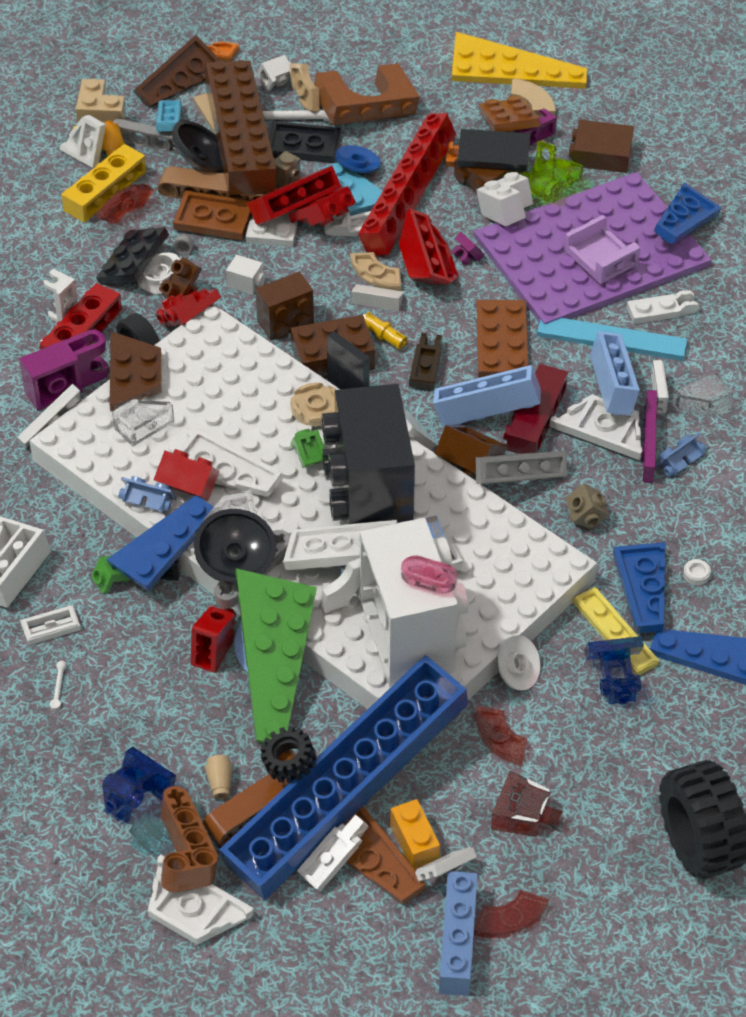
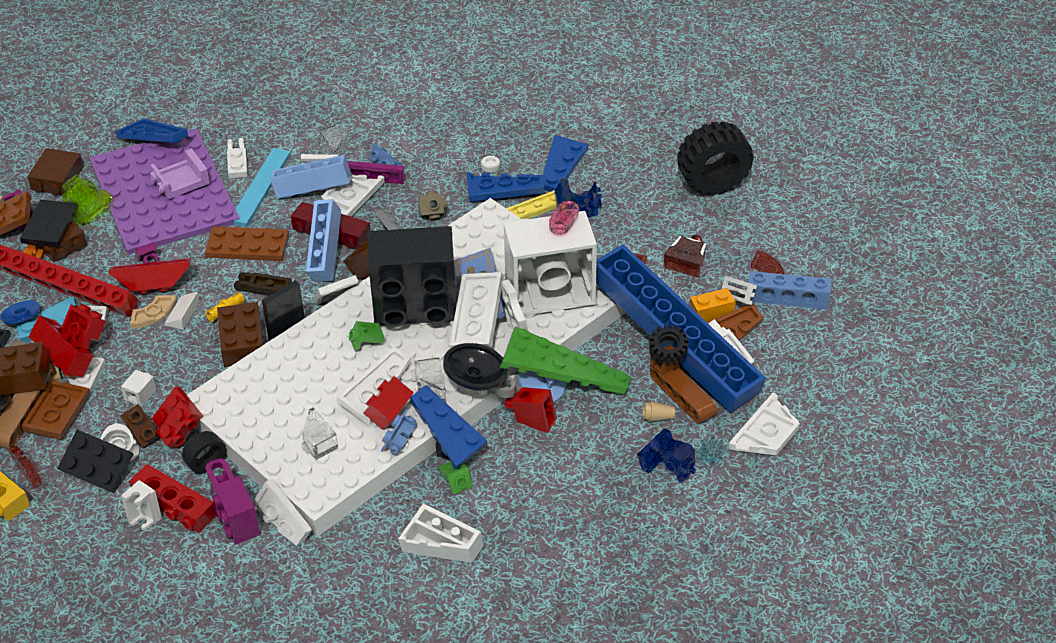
camera: 85 degrees left, 5 degrees down
(51, 628) = (506, 532): white tile -> none
(55, 704) = (582, 514): white hinge -> none
(133, 370) = (254, 445): reddish brown wing -> none
(183, 244) = (87, 427): light grey hinge -> none
(195, 856) = (722, 421): dark orange beam -> none
(284, 305) = (192, 355): reddish brown brick -> none
(311, 402) = (316, 332): tan tile -> none
(505, 198) = (106, 225): white brick -> none

